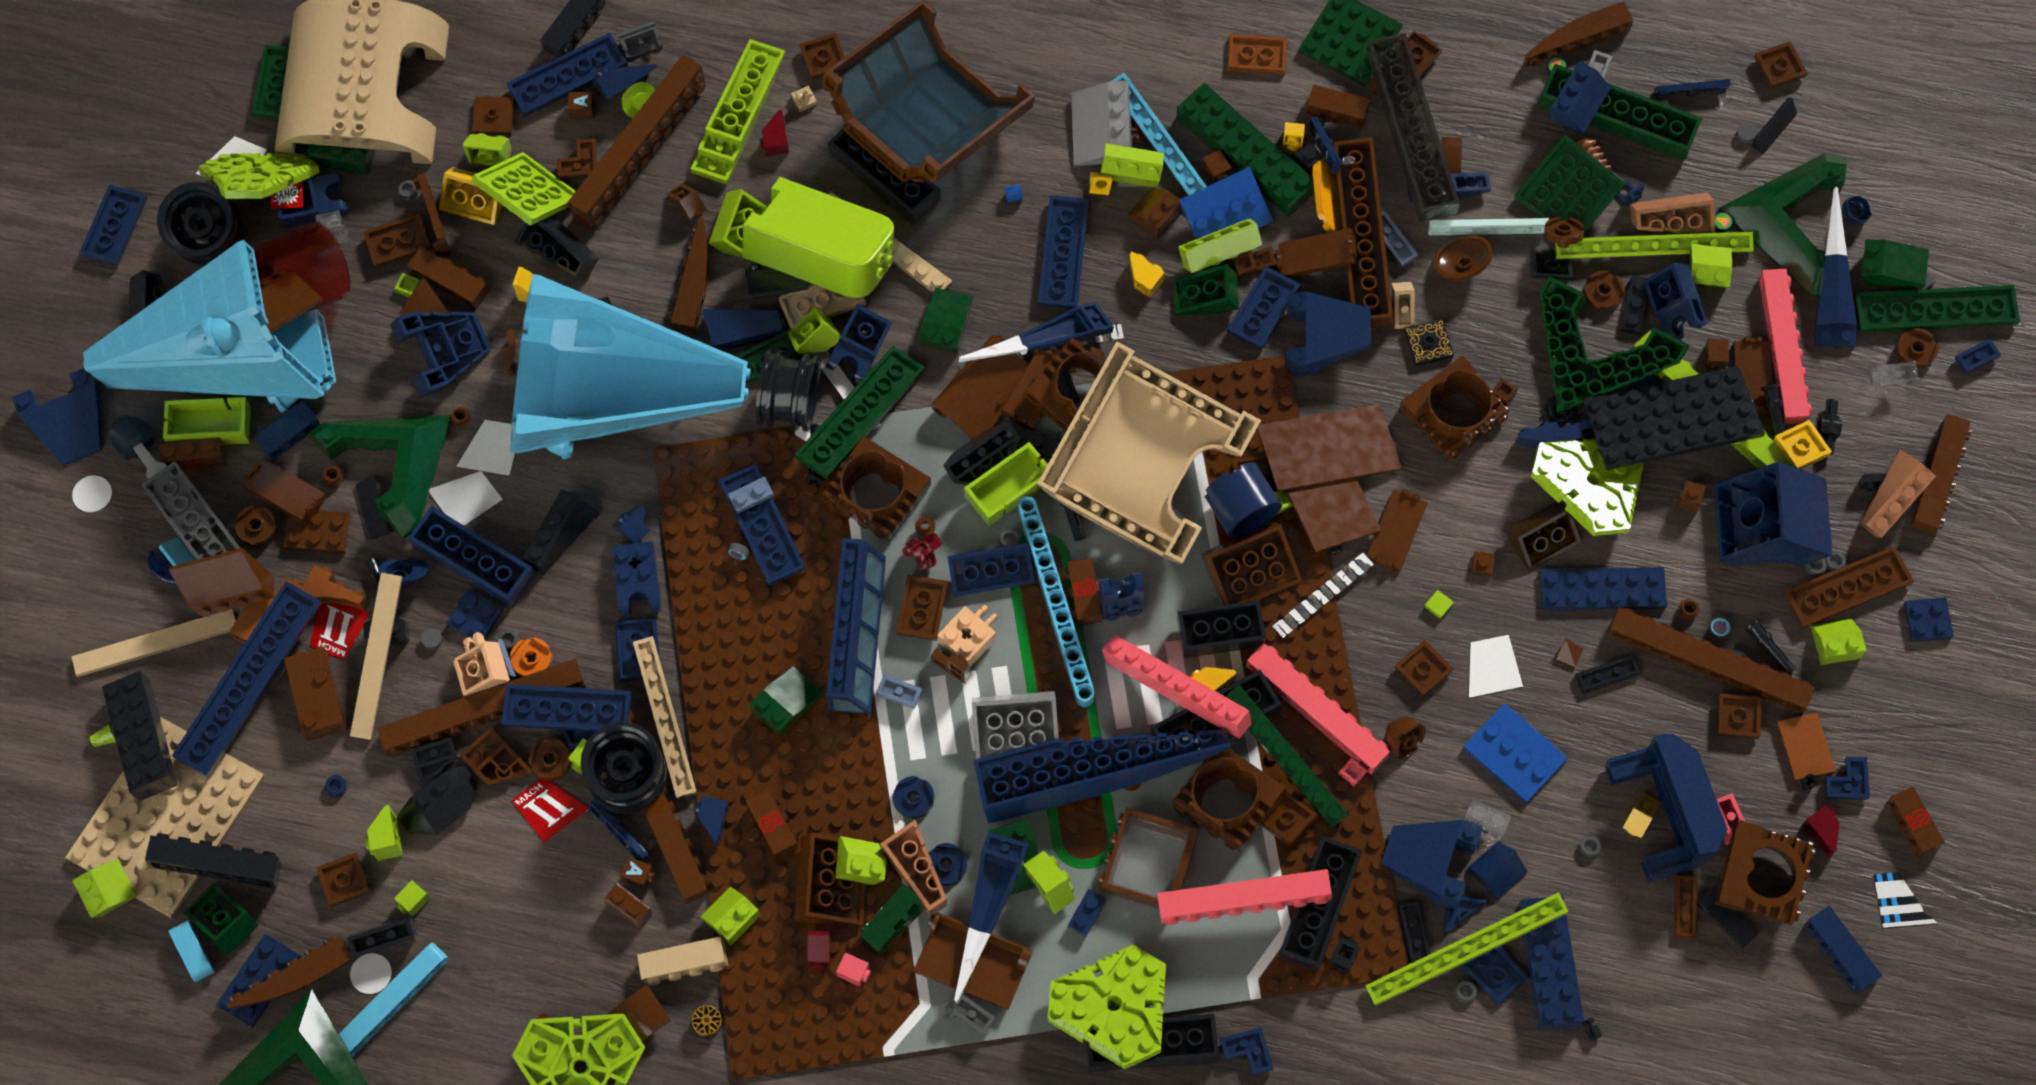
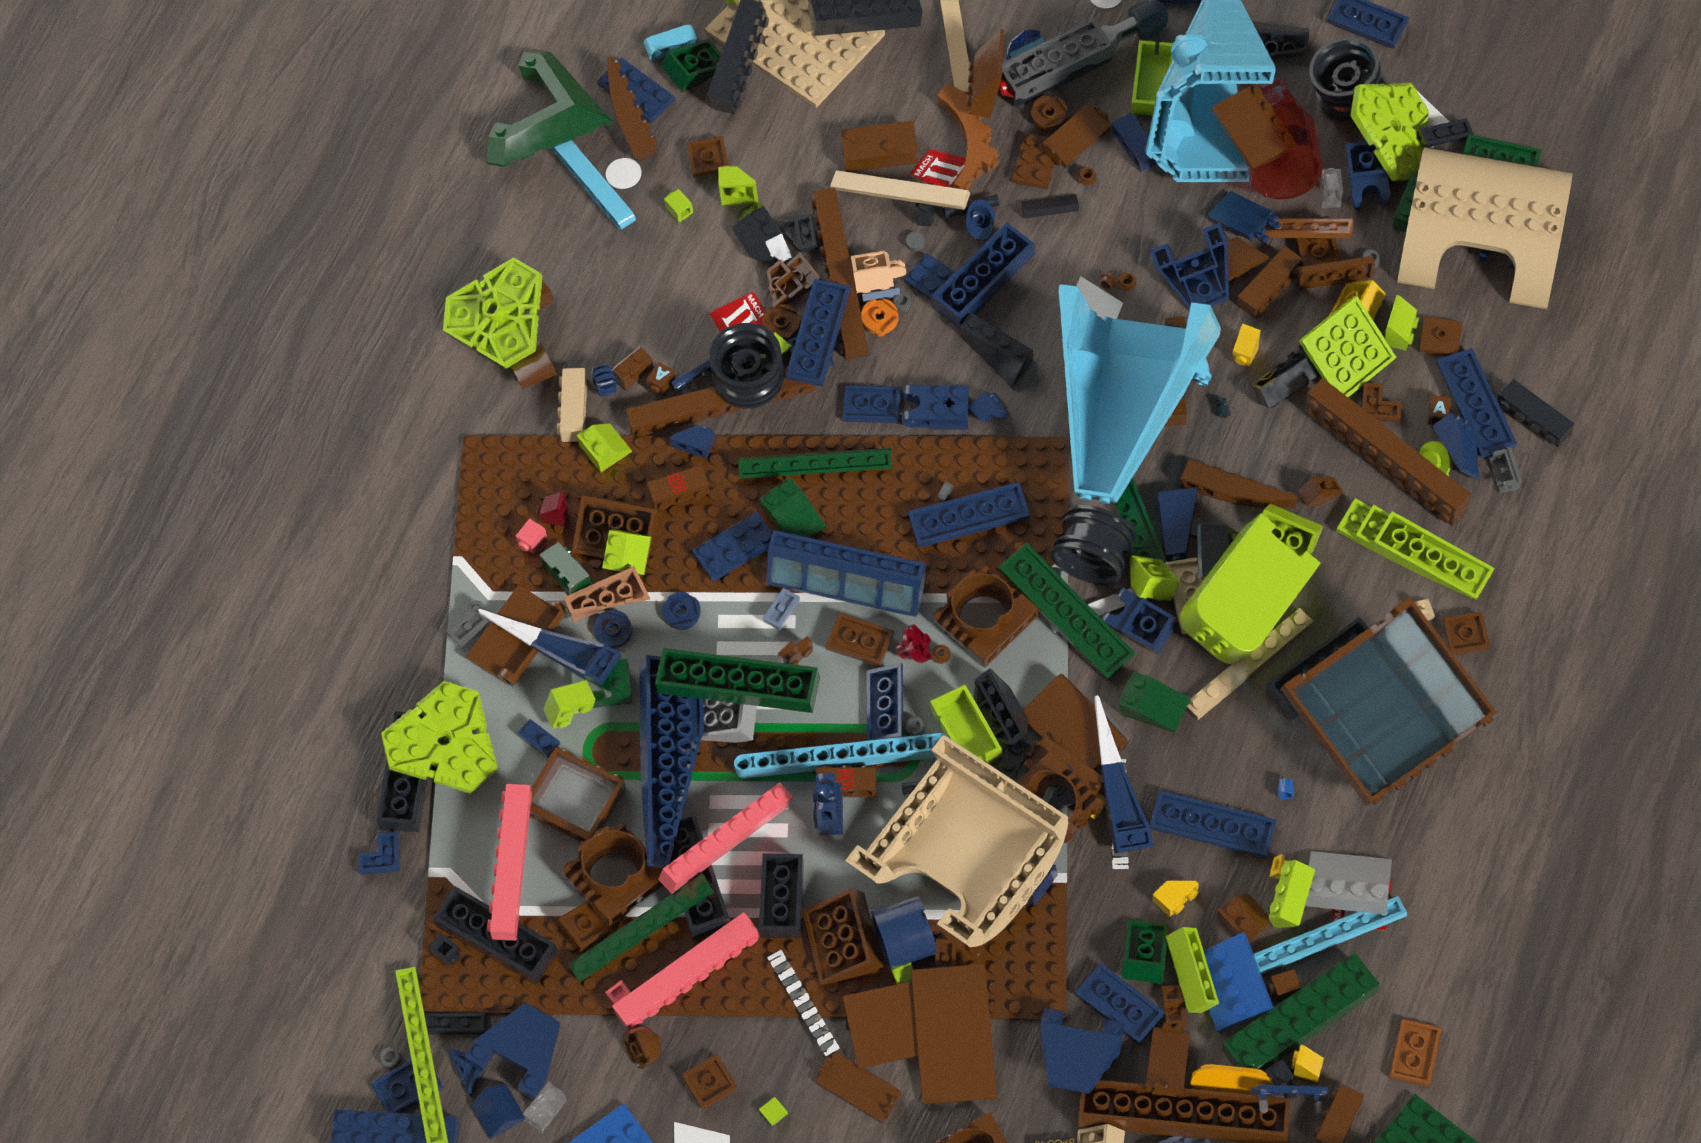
camera: 105 degrees right, 5 degrees down
(193, 453) = (1125, 66): reddish brown brick -> none
(246, 679) = (900, 92): dark blue plate -> none
(253, 133) = (1444, 133): none -> black plate
(289, 197) = (1365, 153): sticker -> none
(336, 786) = (794, 158): dark blue tile -> none
(373, 310) = (1244, 217): none -> dark blue tile
(382, 936) = (648, 179): black brick -> none
(385, 255) = (1311, 228): none -> dark orange plate
(406, 285) = (1271, 249): lime tile -> none
(418, 454) = (1105, 242): dark green wedge -> none
(462, 435) = (1108, 281): none -> reddish brown plate
(466, 497) = (1045, 278): white sticker -> none
(648, 932) = (604, 380): none -> dark blue gear
(664, 717) = (799, 415): tan plate -> none
(707, 1021) = (517, 420): wheel -> none
(723, 688) = (815, 463): none -> dark green plate
(751, 495) = (997, 505): sand blue plate -> none
(774, 136) = (1382, 578): dark red slope -> none
(831, 754) = (734, 547): none -> dark blue plate
(968, 624) = (831, 671): light nougat hinge -> none
(1004, 702) = (737, 680): none -> dark green brick
(1214, 677) = (733, 878): yellow slope -> none

